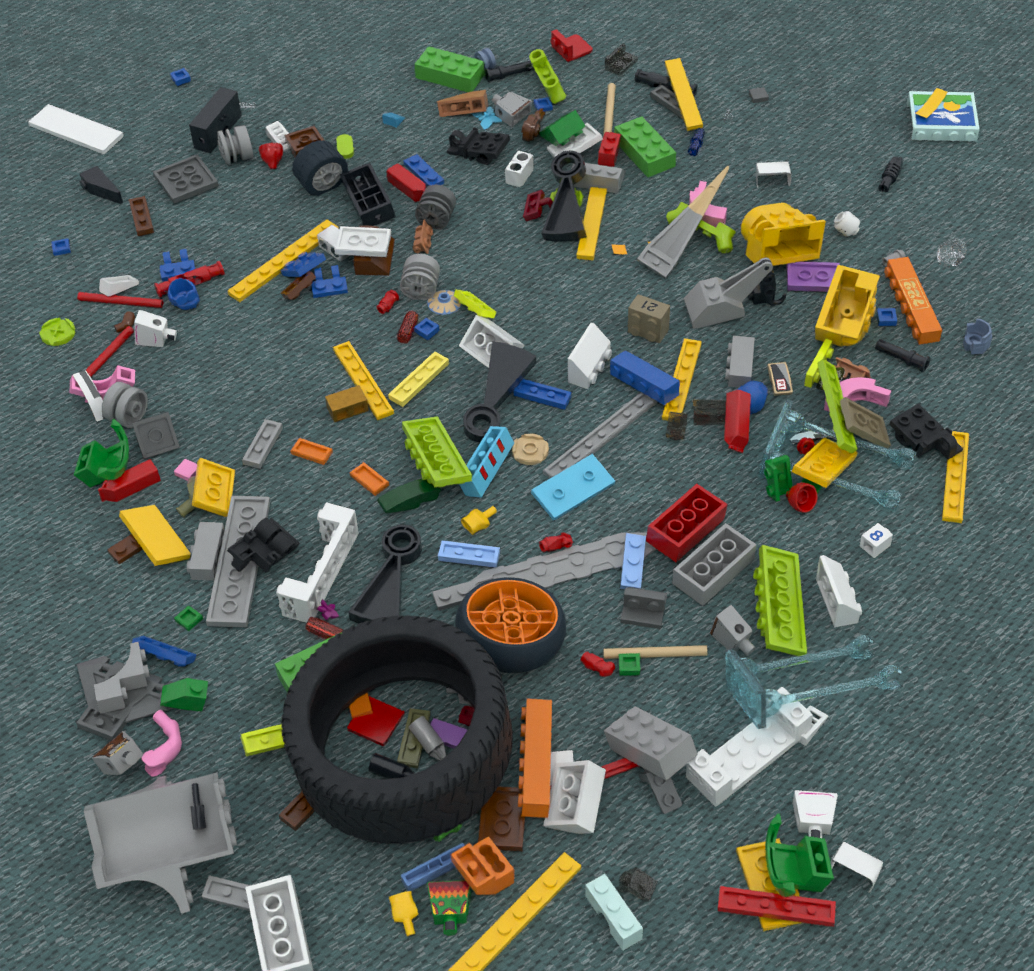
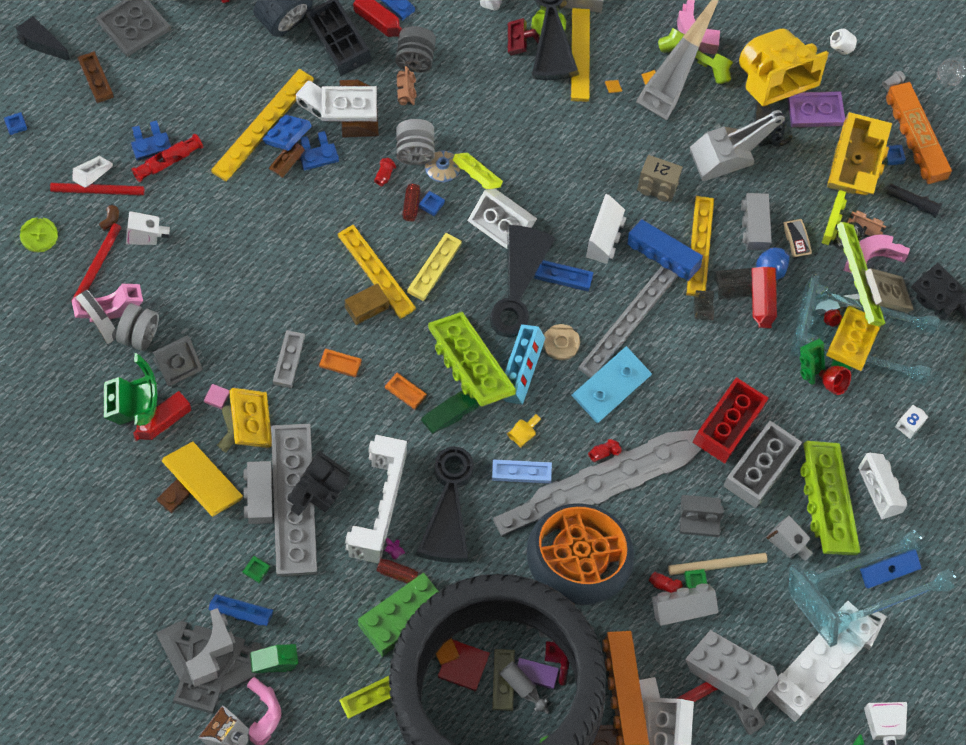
camera: 15 degrees left, 15 degrees up
(183, 294) = (166, 180): blue hair -> none
(388, 767) = (495, 719): black wheel -> none
(613, 681) = (685, 604): none -> light grey brick
(633, 561) = (683, 466): light blue plate -> none
(848, 668) = (900, 565): none -> blue tile

